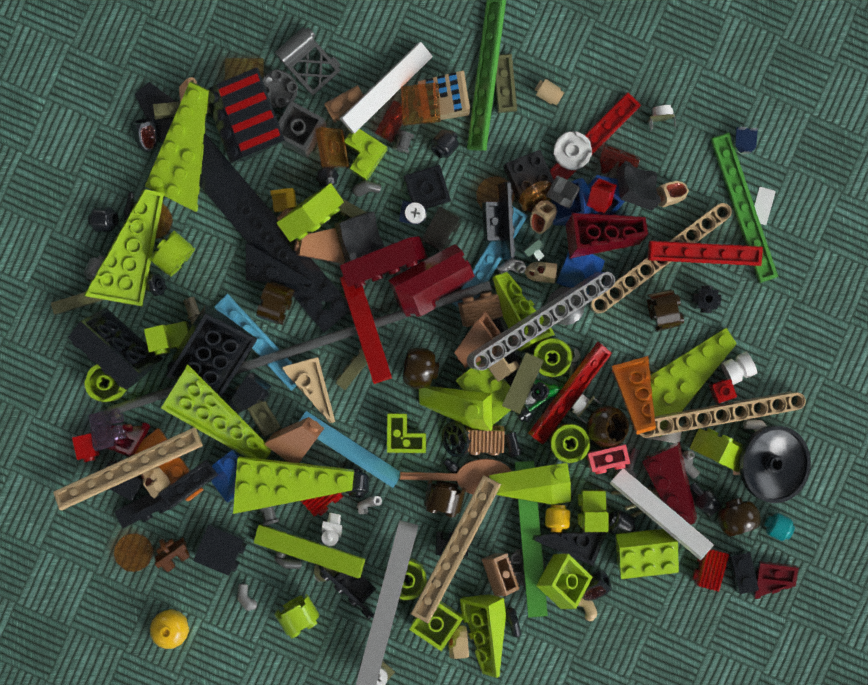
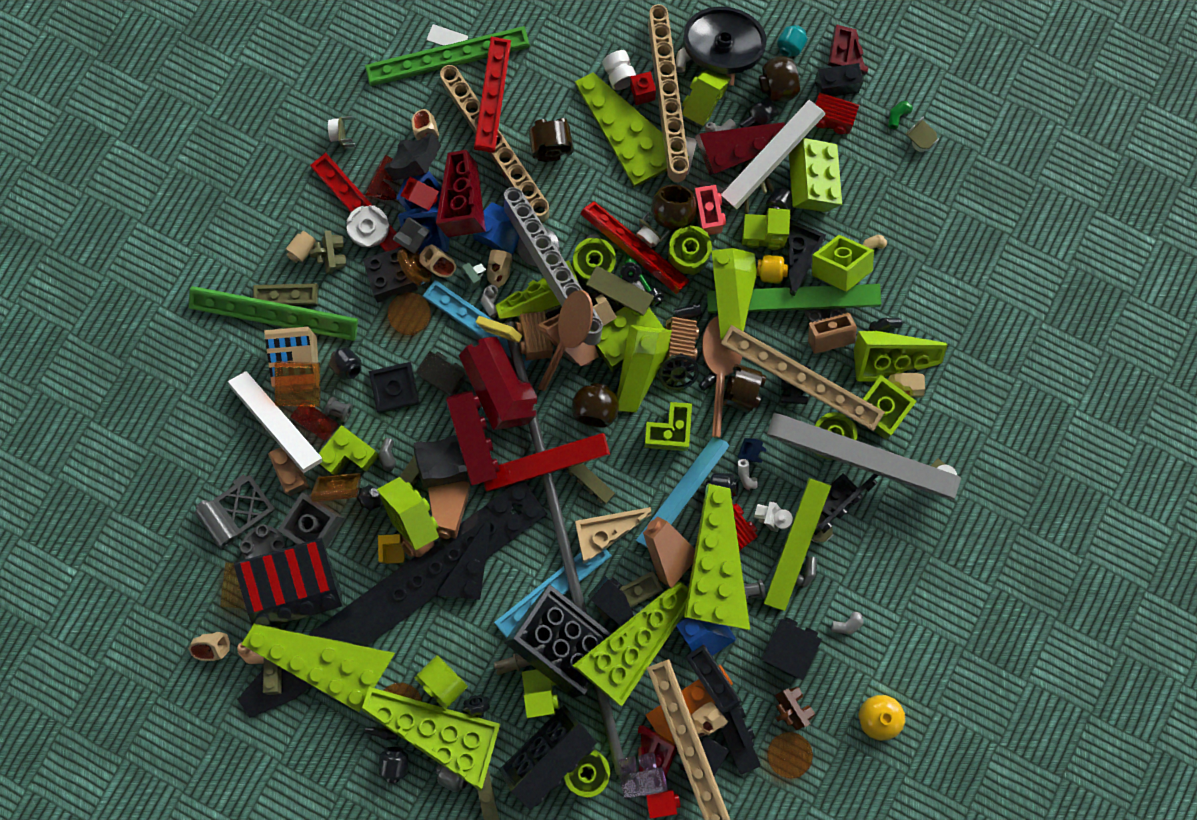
camera: 85 degrees left, 10 degrees down
(144, 134) = (297, 707): black rock -> none
(190, 54) = (210, 646): none -> tan rock
(275, 303) = (509, 564): dark brown brick -> none
(297, 615) = (871, 563): lime brick -> none
(390, 507) = (750, 450): none -> dark blue tile
(412, 213) = (419, 403): white piece -> none
(481, 277) = (498, 329): none -> light yellow tile
(481, 344) = (573, 328): none -> nougat piece
(499, 221) = (437, 307): black bracket -> none
(555, 118) = (329, 243): none -> olive hips
(598, 587) = (848, 228): black rock -> none
(636, 391) = (635, 175): orange wing -> none
(694, 651) = (922, 136): none -> olive piece
(699, 301) = (542, 98): black brick -> none
(717, 626) = (901, 108): none -> green arm
(745, 140) = (375, 48): dark blue piece -> none

